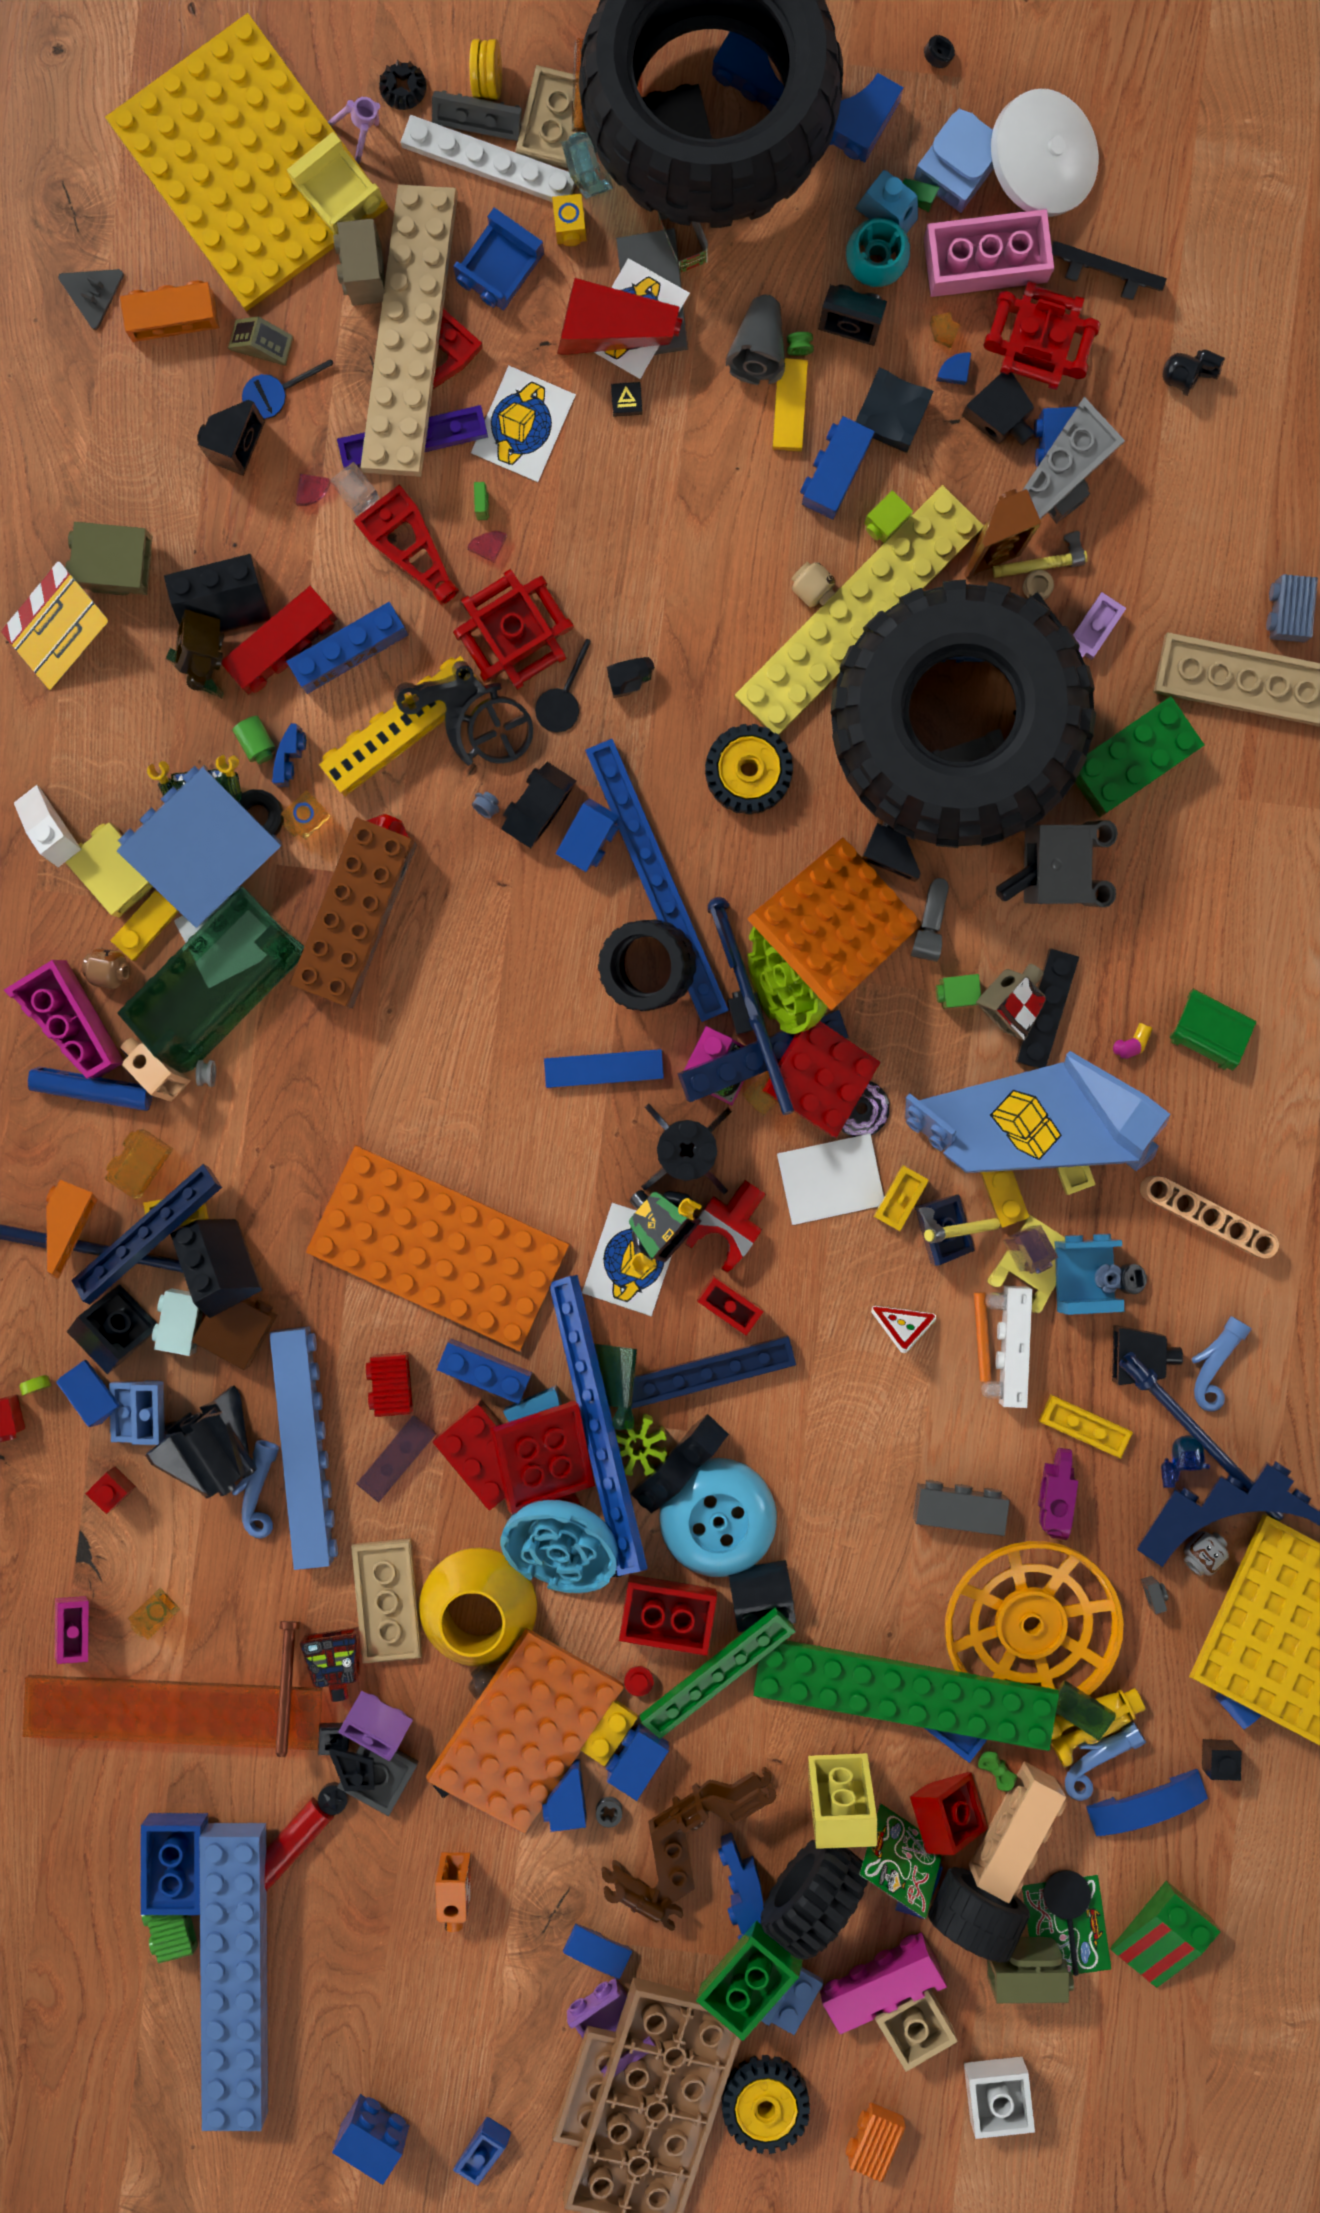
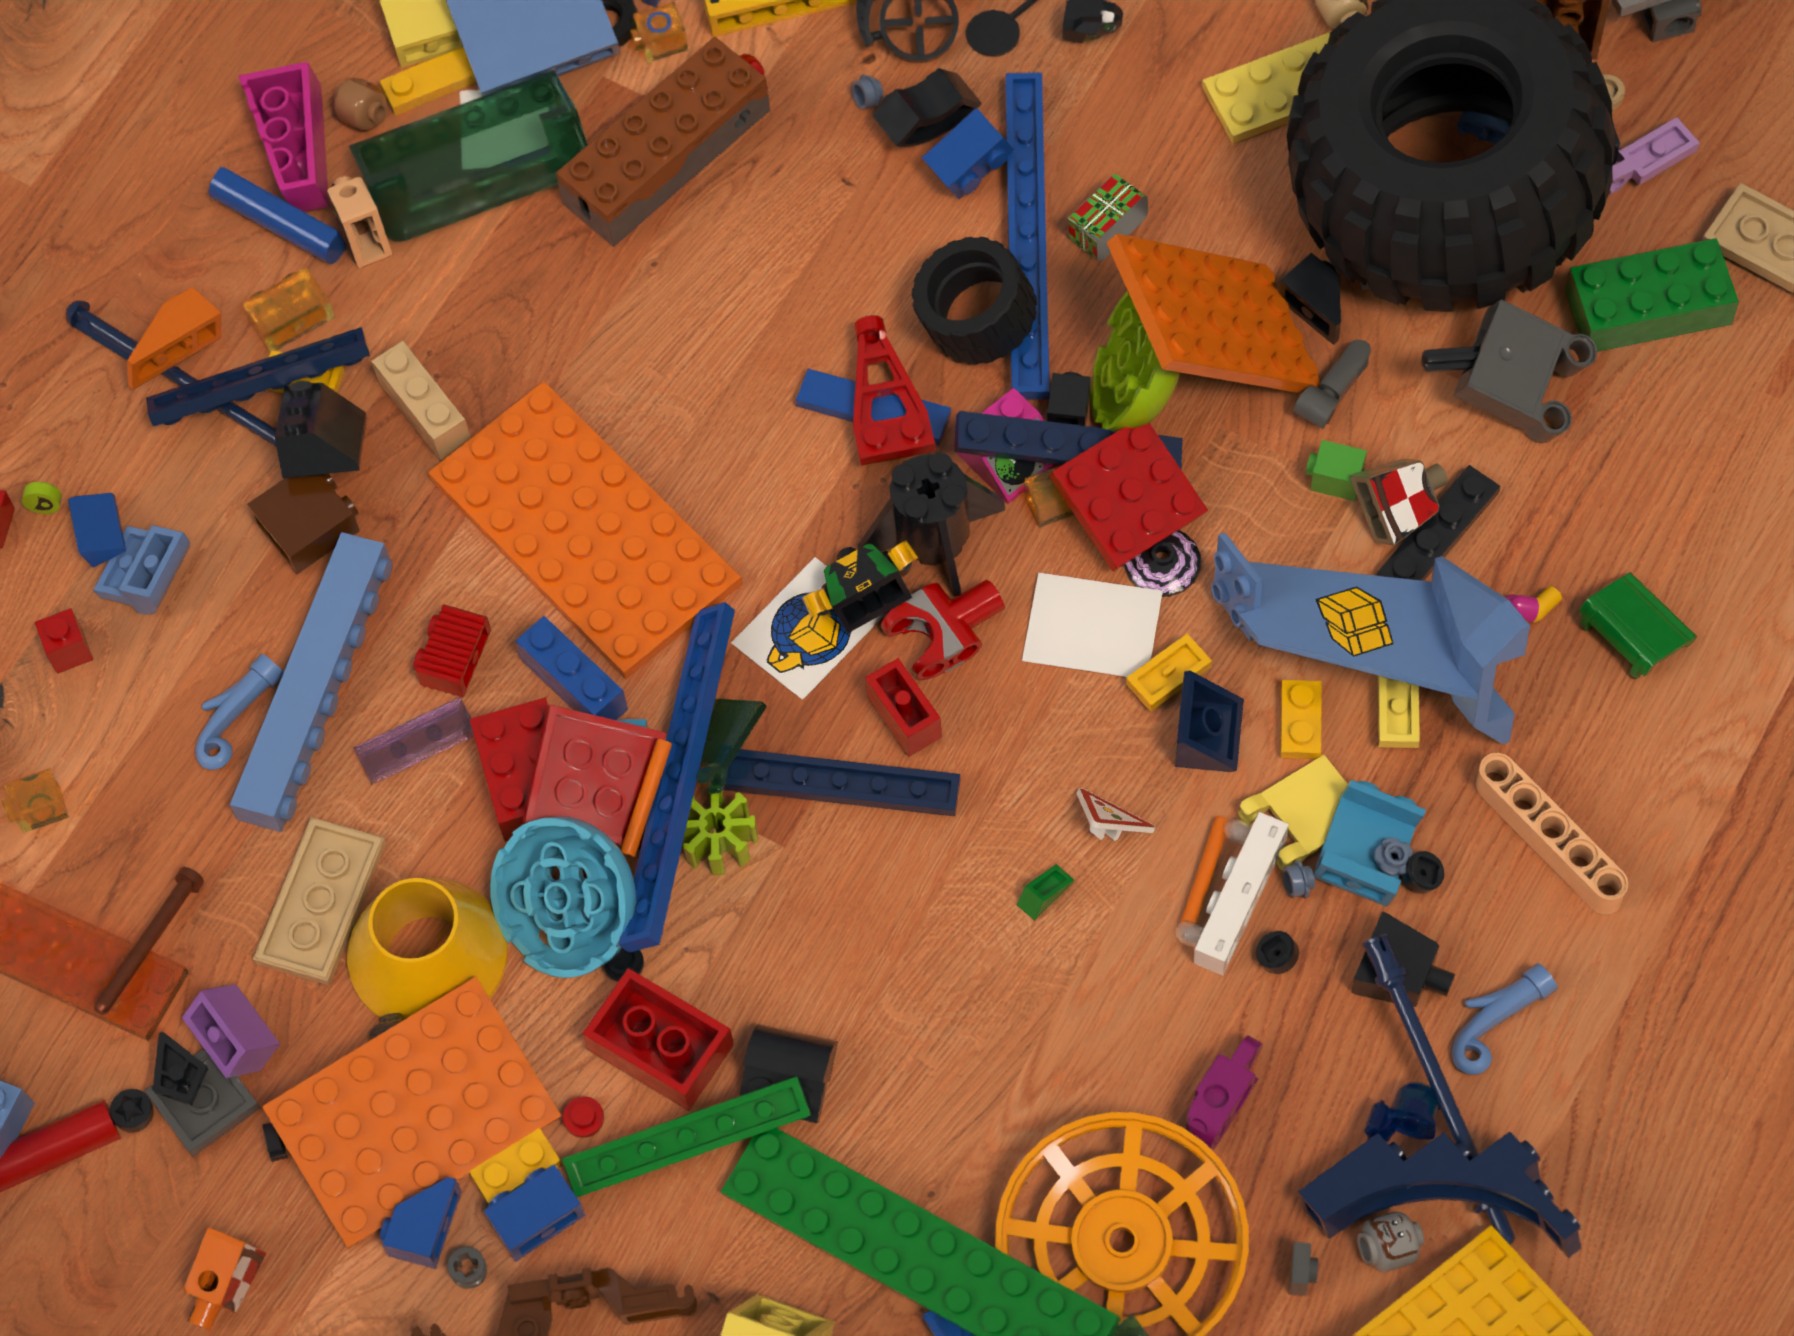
camera: 30 degrees right, 25 degrees down
(112, 1328) = (162, 470): black slope -> none
(177, 1323) = (243, 480): light aqua brick -> none
(205, 1073) = (413, 246): light grey bush -> none
(207, 1447) = (204, 622): black brick -> none
(274, 1199) = (421, 400): none -> tan brick
(330, 1738) = (172, 1026): black tile -> none
(333, 1660) = (221, 937): torso -> none
(585, 1455) = (646, 797): none -> orange bar
(632, 1092) = (894, 436): none -> red plate
(680, 1464) = (740, 870): black arch -> none
(711, 845) = (1110, 210): none -> piece
(717, 908) = (1085, 287): dark blue bar -> none
(732, 1486) = (810, 987): medium azure brick -> none
(753, 746) = (1189, 133): wheel -> none
(879, 1392) = (1044, 891): none -> green piece
(935, 1233) = (1192, 700): light yellow piece -> none
(961, 1508) = (1089, 1061): dark grey brick -> none
(1031, 1249) = (1304, 770): brick -> none
(1049, 1318) = (1298, 879): none -> sand blue plate
(1055, 1377) = (1277, 952): none -> black tile
(1075, 557) = (1660, 79): light yellow piece -> none
(1085, 1426) = (1294, 1031): yellow tile -> none

